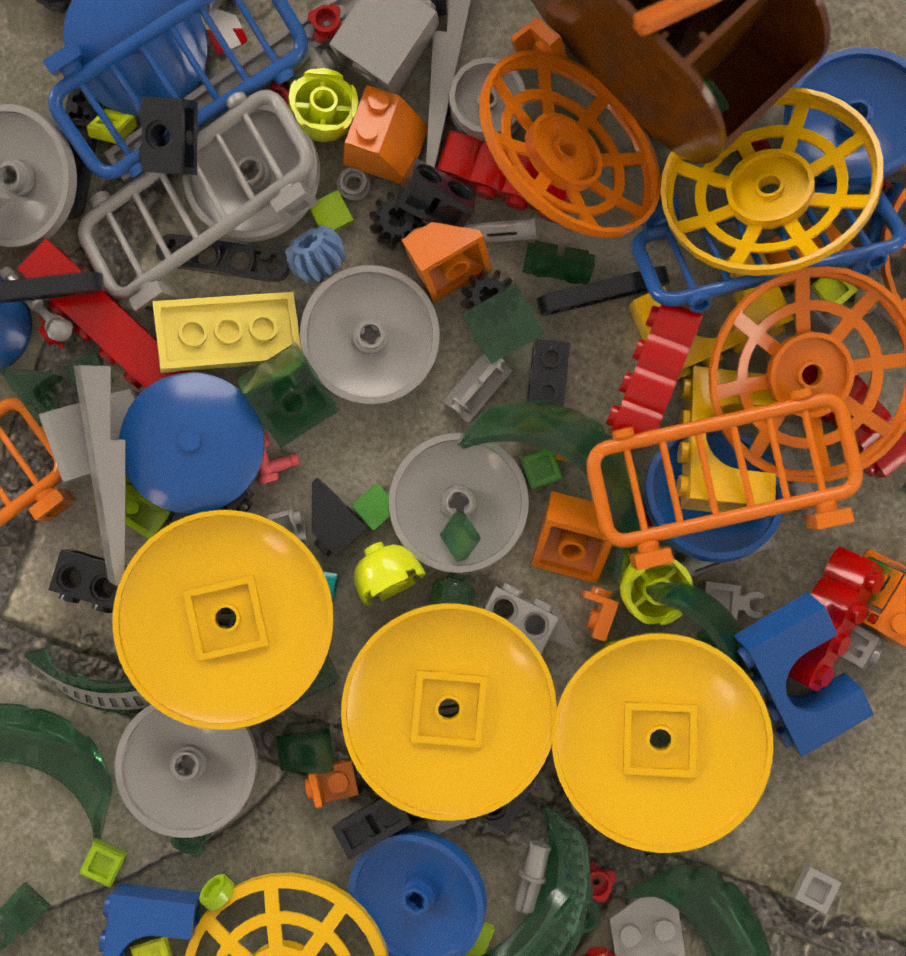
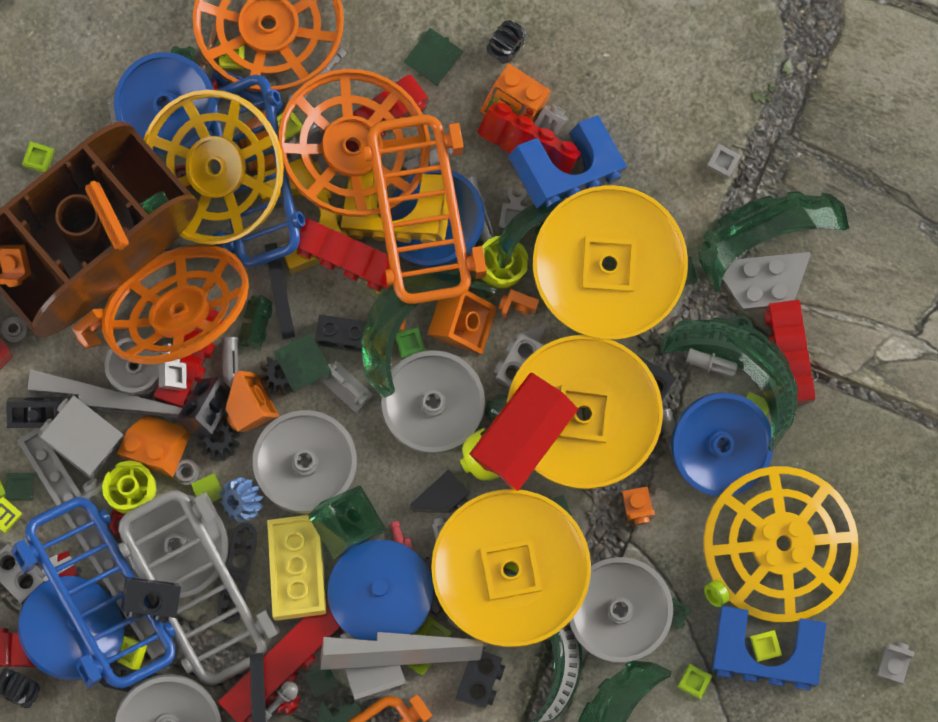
camera: 90 degrees left, 10 degrees down
(306, 751) = (614, 523): clear green slope -> none
(319, 16) = (59, 479): red plate -> none
(370, 826) = (667, 474): black brick -> none
(373, 506) = (432, 467): bright green tile -> none
(413, 630) = (524, 431): none -> red slope
(460, 536) = (458, 400): clear green tile -> none
(474, 151) = (172, 374): none -> light grey plate
(606, 878) = (714, 309): red plate -> none

